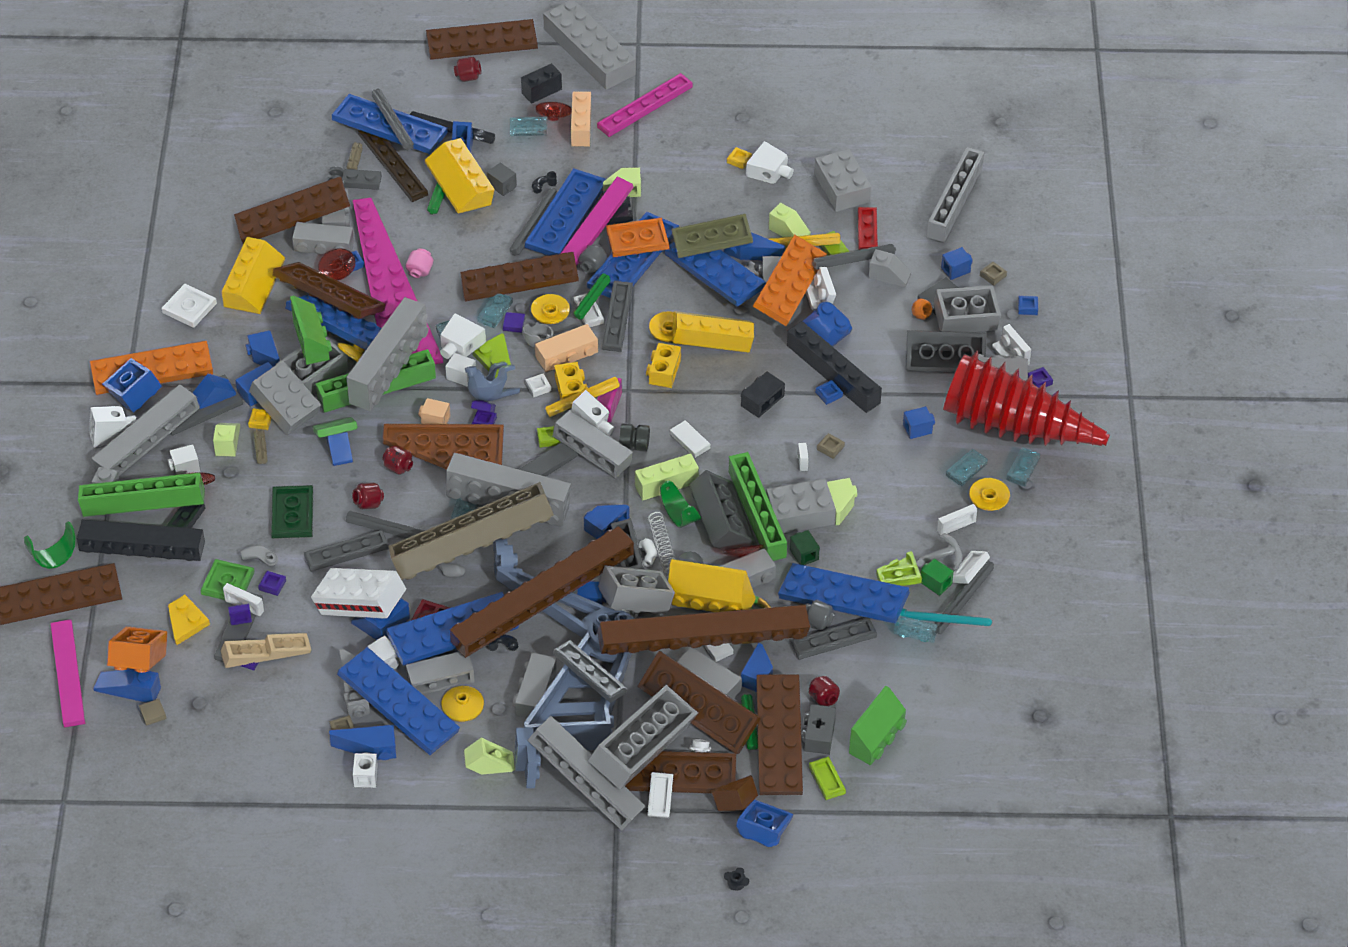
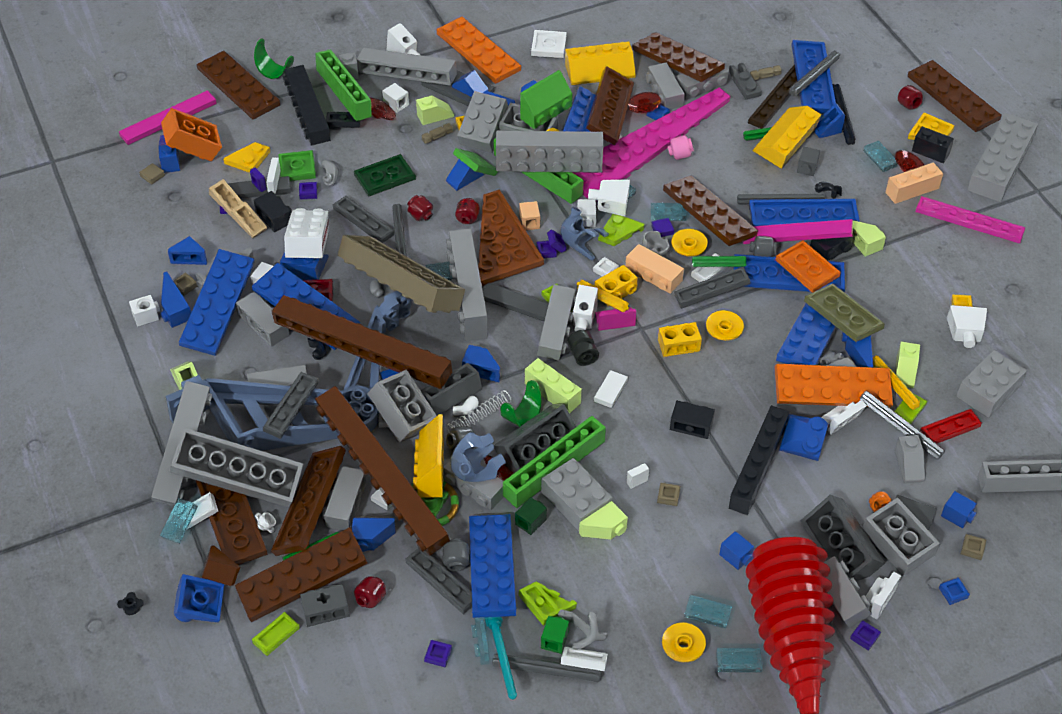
camera: 65 degrees right, 0 degrees up
(132, 385) = (447, 42): blue slope -> none
(290, 618) = (272, 211): none -> black brick
(305, 708) = (187, 252): none -> blue slope
(459, 709) = (244, 347): yellow dish -> none
(512, 73) = (932, 123): none -> yellow wing
(664, 811) = (179, 520): none -> clear light blue plate
(712, 331) = (739, 354): yellow slope -> none
(744, 561) = (466, 461): none -> sand blue piece
(829, 392) = (731, 469): blue tile -> none
(877, 727) = (342, 647): bright green slope -> none
(909, 667) = (438, 653): none -> dark purple tile
(957, 519) = (635, 626): white tile -> none

